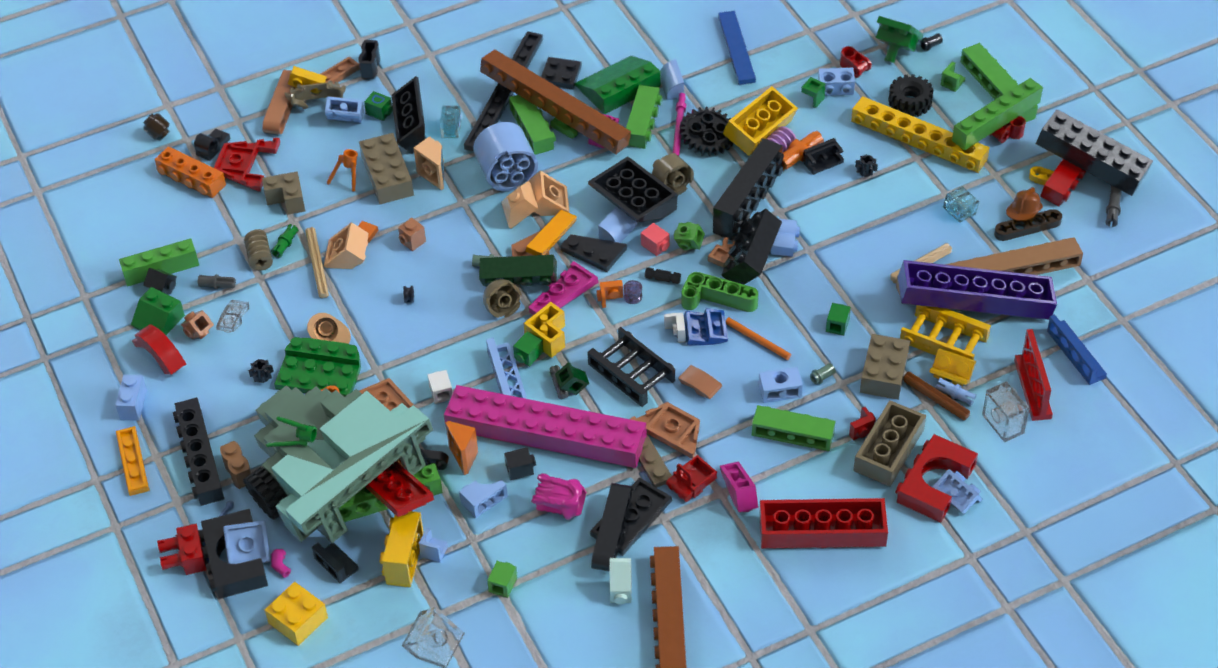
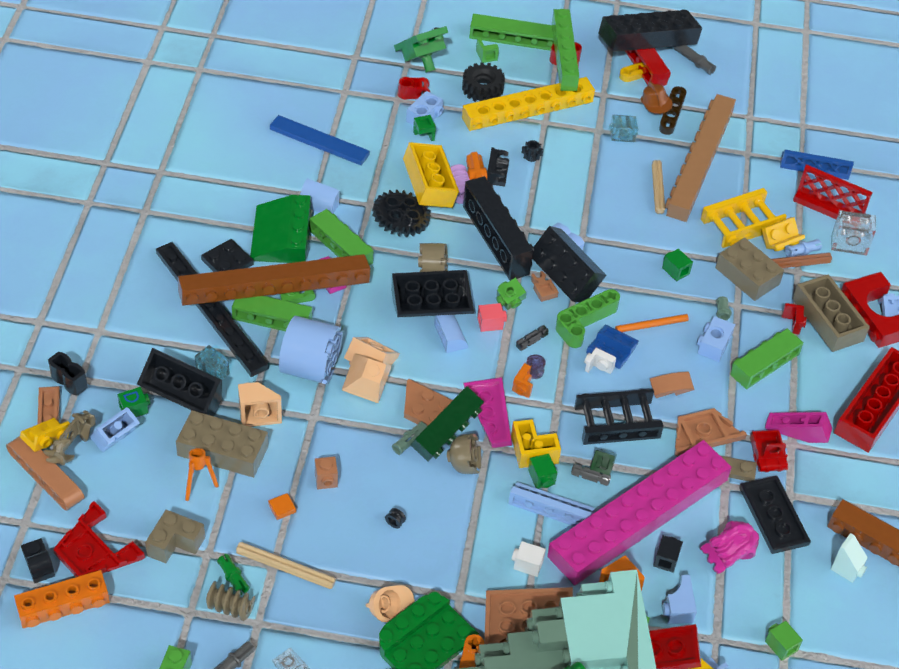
camera: 60 degrees left, 0 degrees up
(346, 248) = (293, 532): light nougat slope -> none
(551, 233) = (422, 378): light orange tile -> none
(594, 251) = (461, 364): black wing -> none
(611, 526) = (788, 531): black beam -> none
(680, 109) = (354, 213): dark pink bar -> none
(976, 290) = (728, 172): dark purple brick -> none

